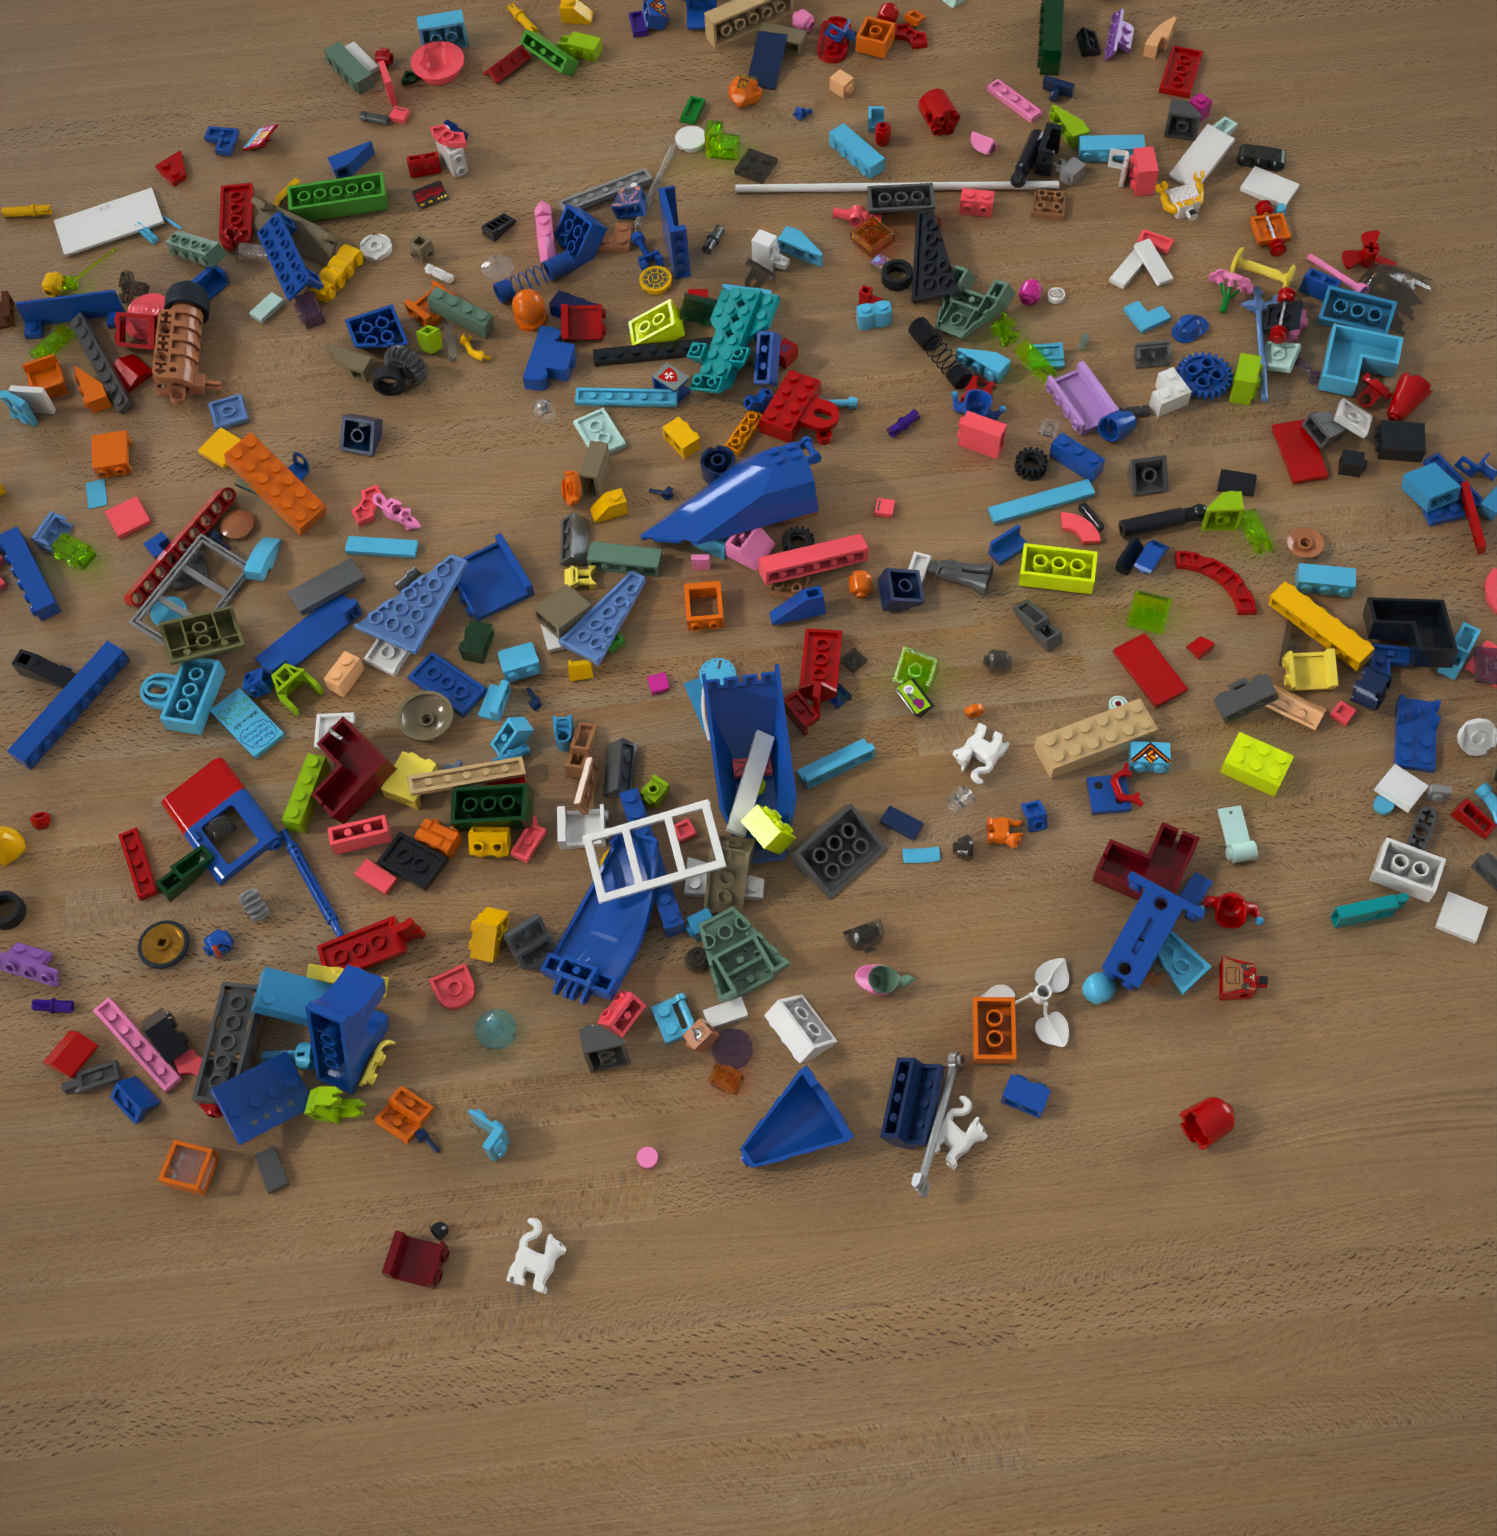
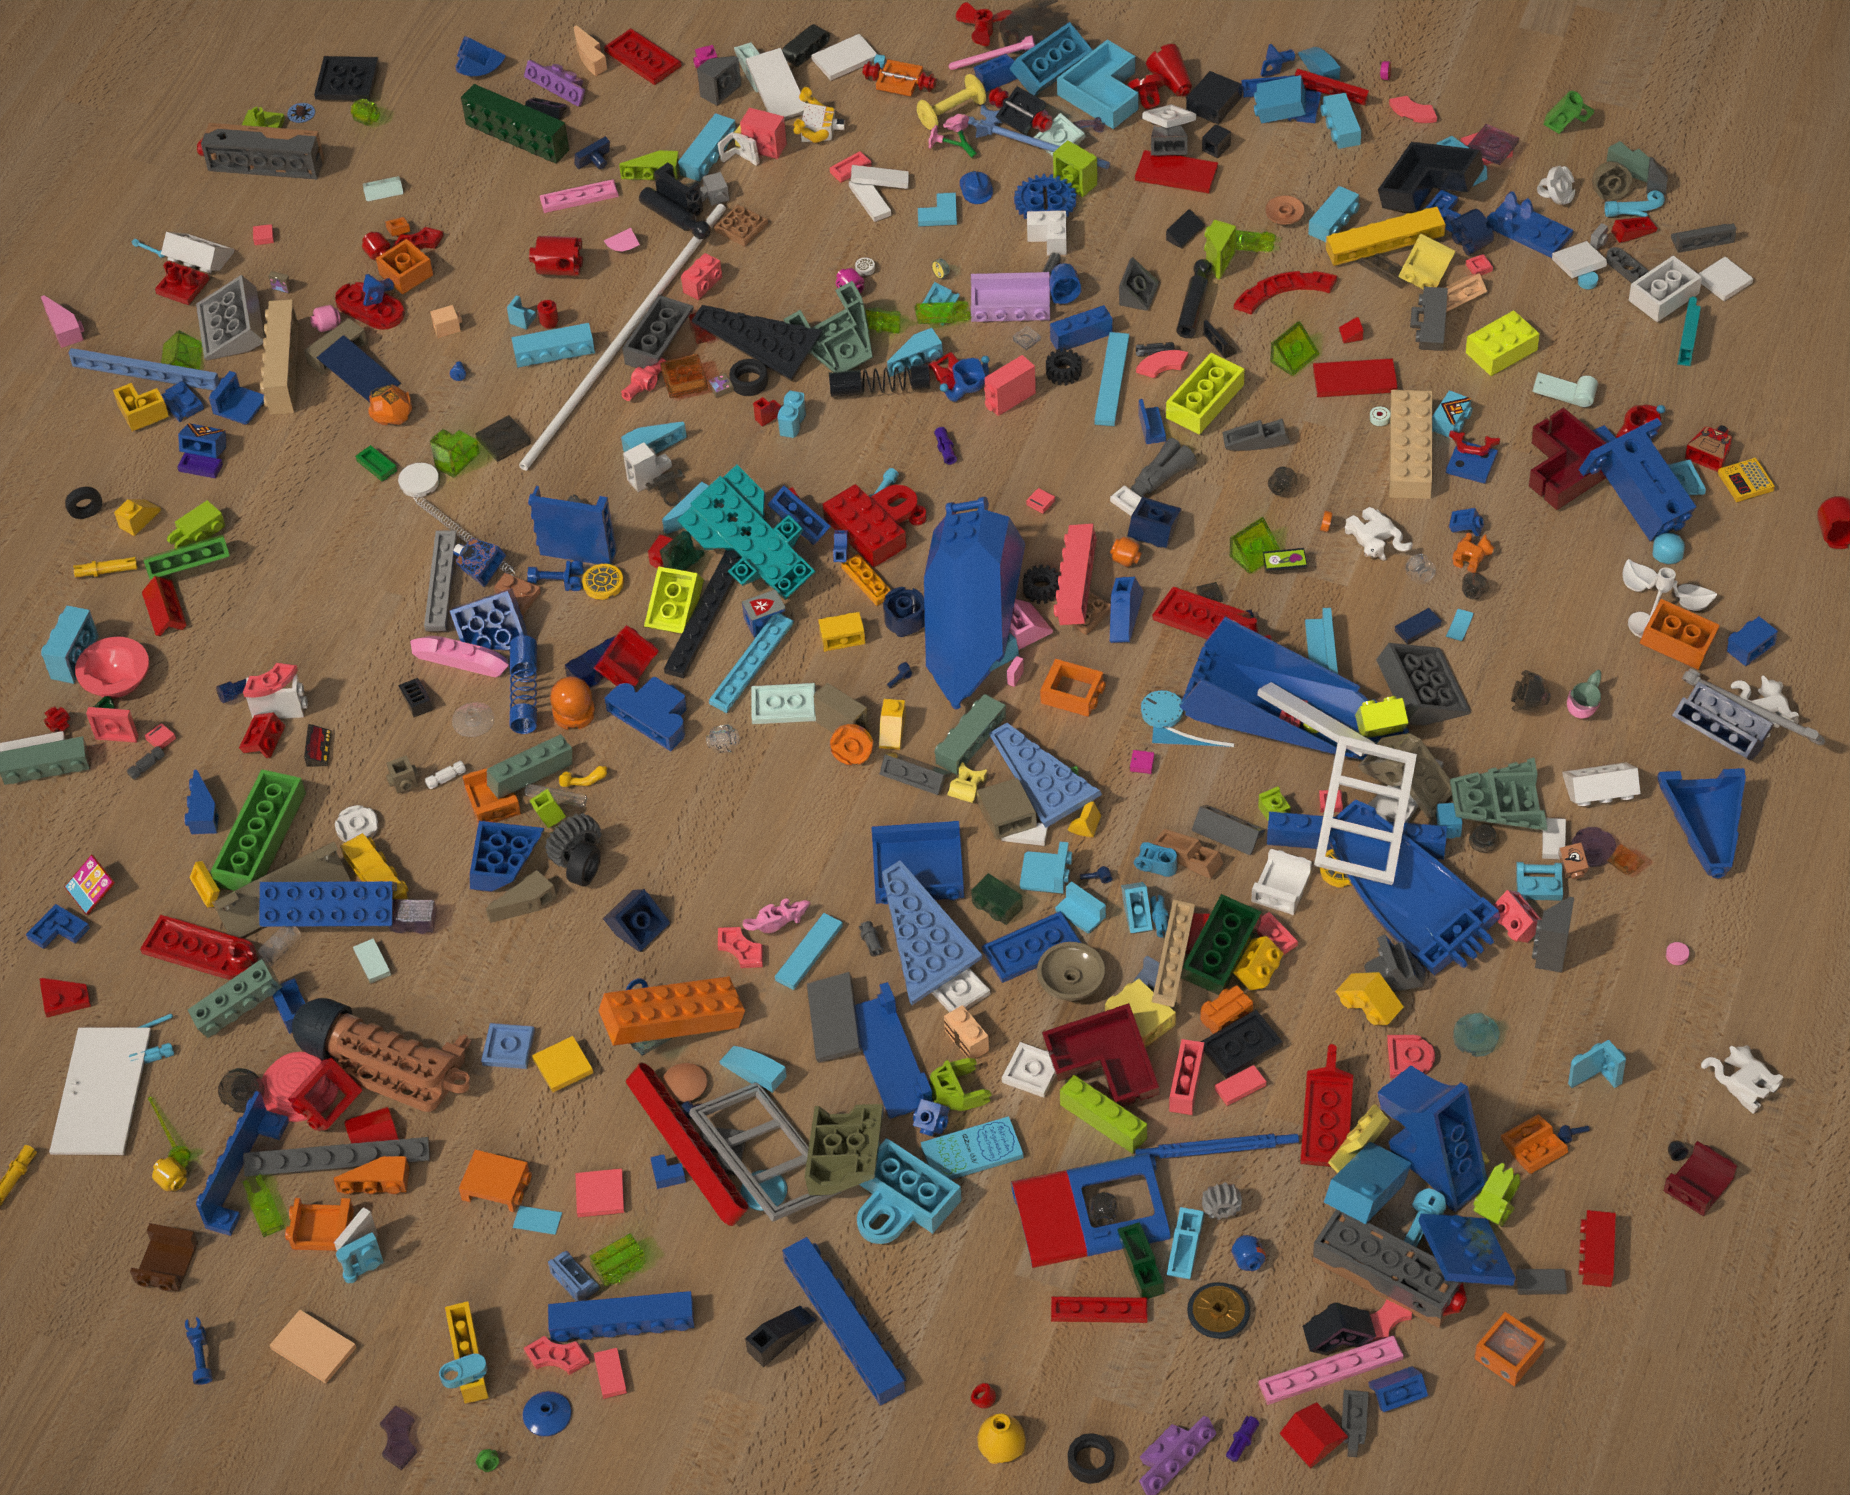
camera: 65 degrees left, 10 degrees down
(212, 896) = (1185, 1243): none -> medium azure slope
(314, 1202) = (1597, 1248): none -> red brick
(587, 786) = (1240, 858): medium nougat tile -> none
(1151, 556) = (1232, 322): blue slope -> none
(1152, 354) = (992, 225): flat silver hinge -> none
(1220, 1024) = (1746, 480): none -> yellow tile
(1440, 541) = (1341, 120): none -> medium azure brick

